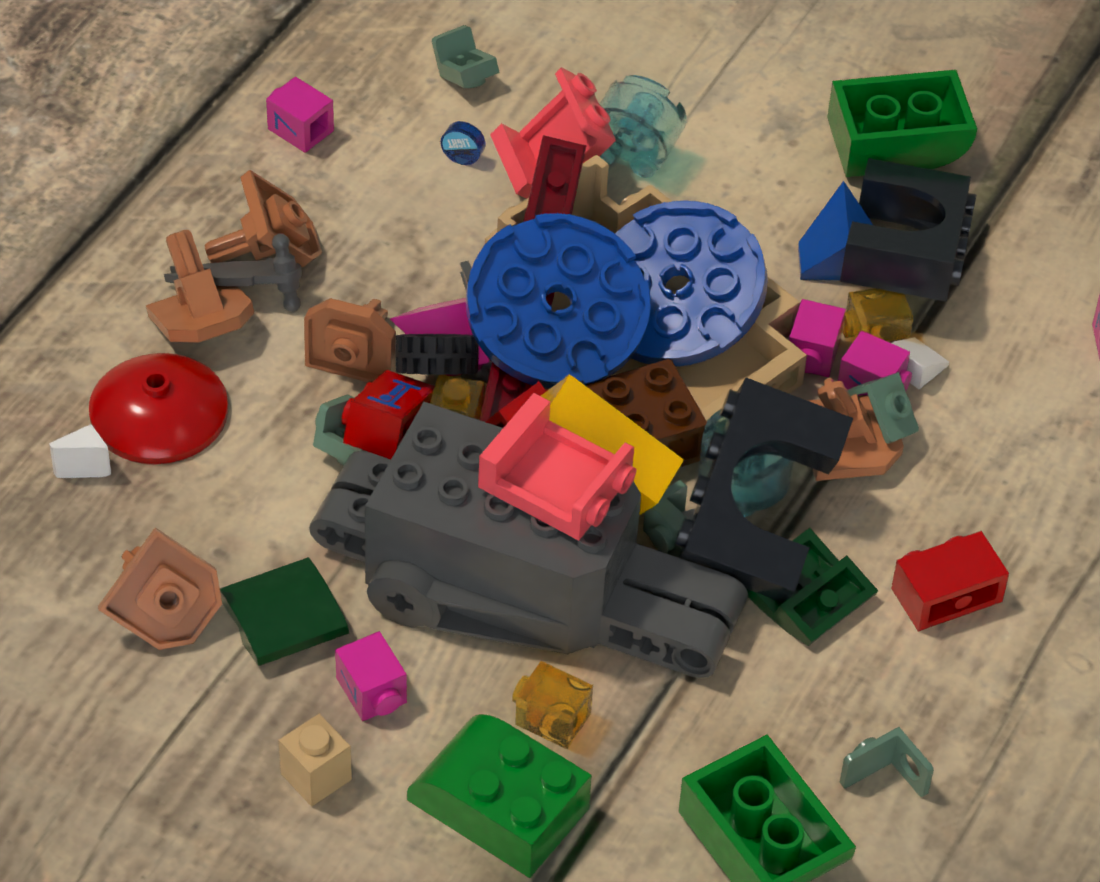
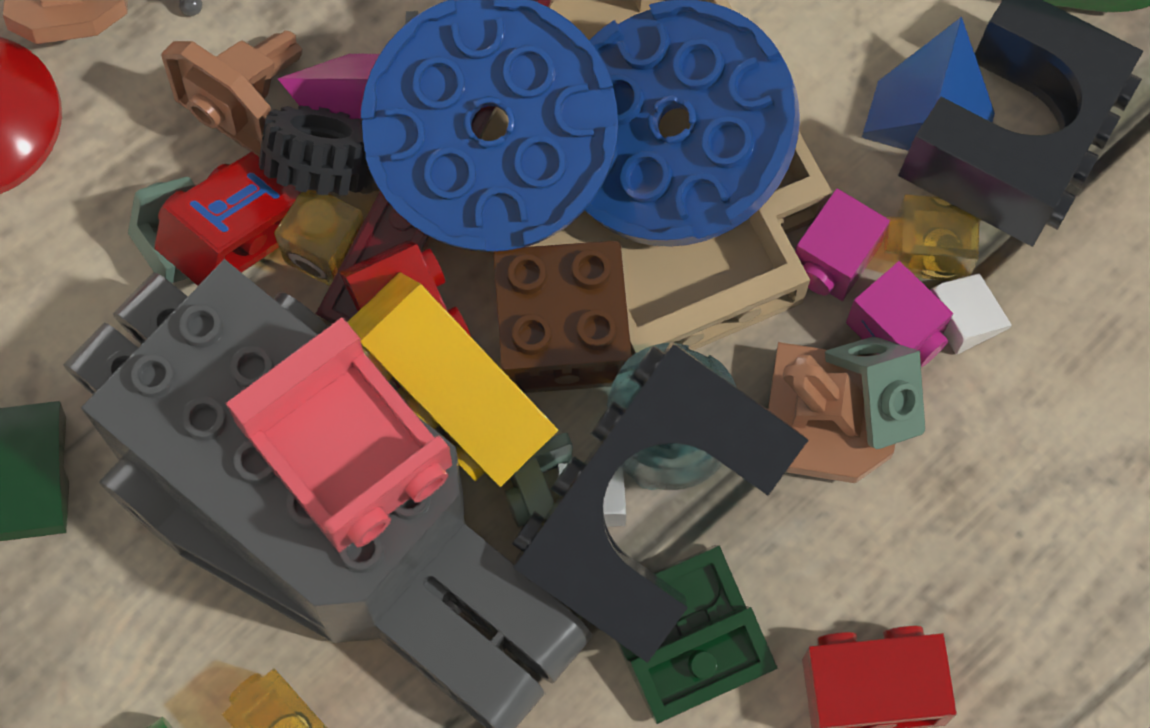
camera: 20 degrees right, 20 degrees up
(371, 676) = (63, 613): dark pink brick -> none

